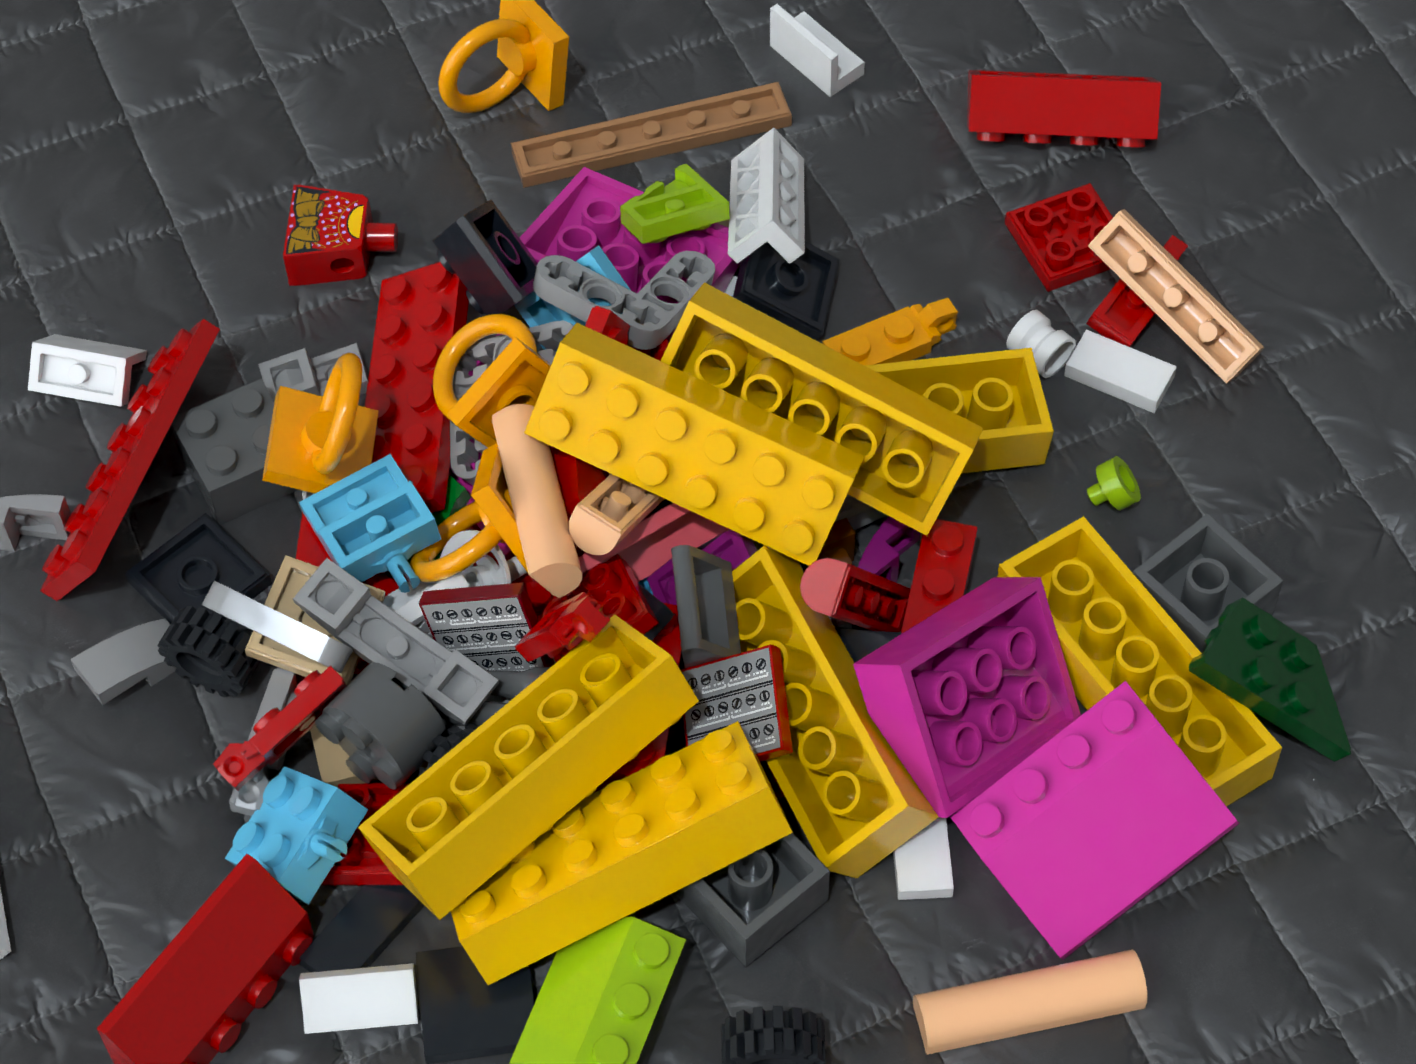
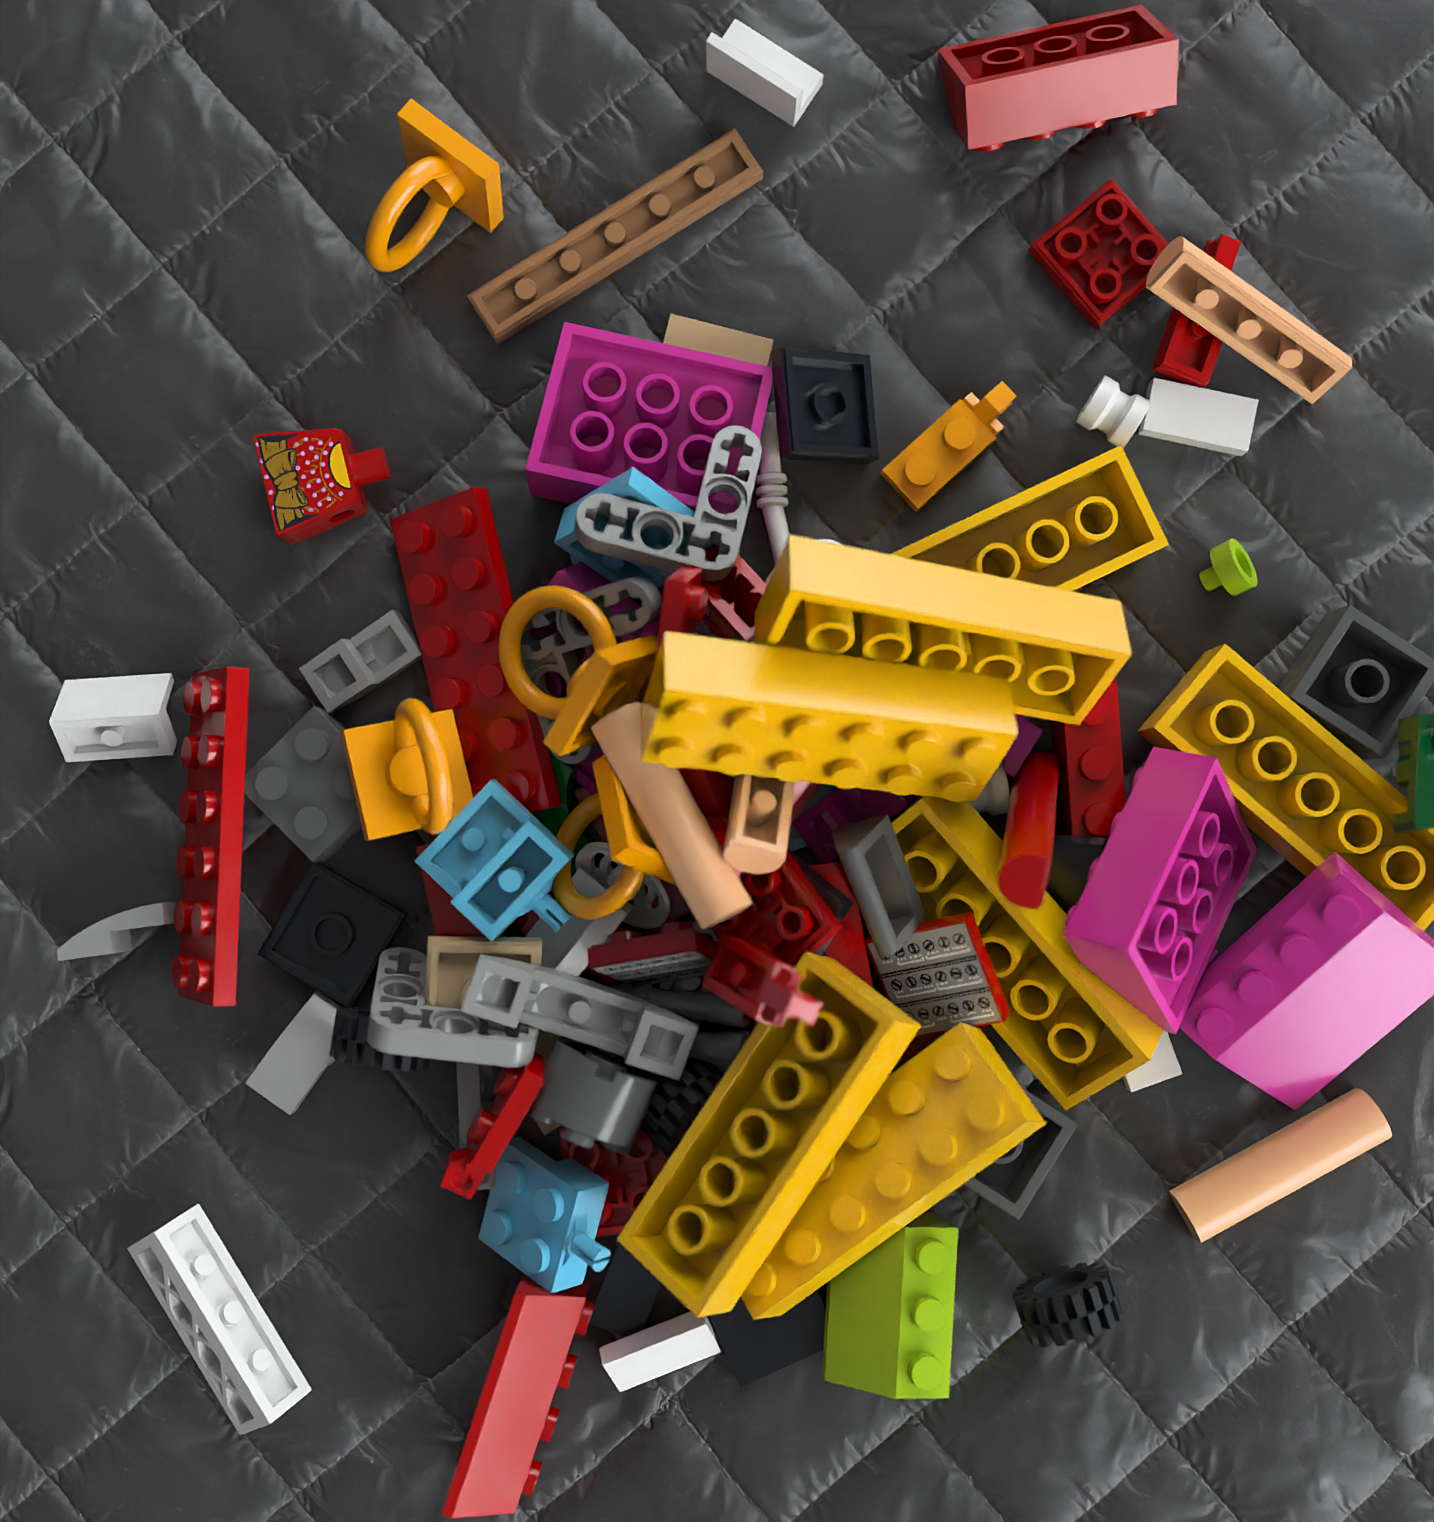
camera: 15 degrees left, 30 degrees up
(487, 259) = (515, 503): black slope -> none
(674, 209) = (686, 361): lime wing -> none
(767, 199) = (789, 303): white fence -> none

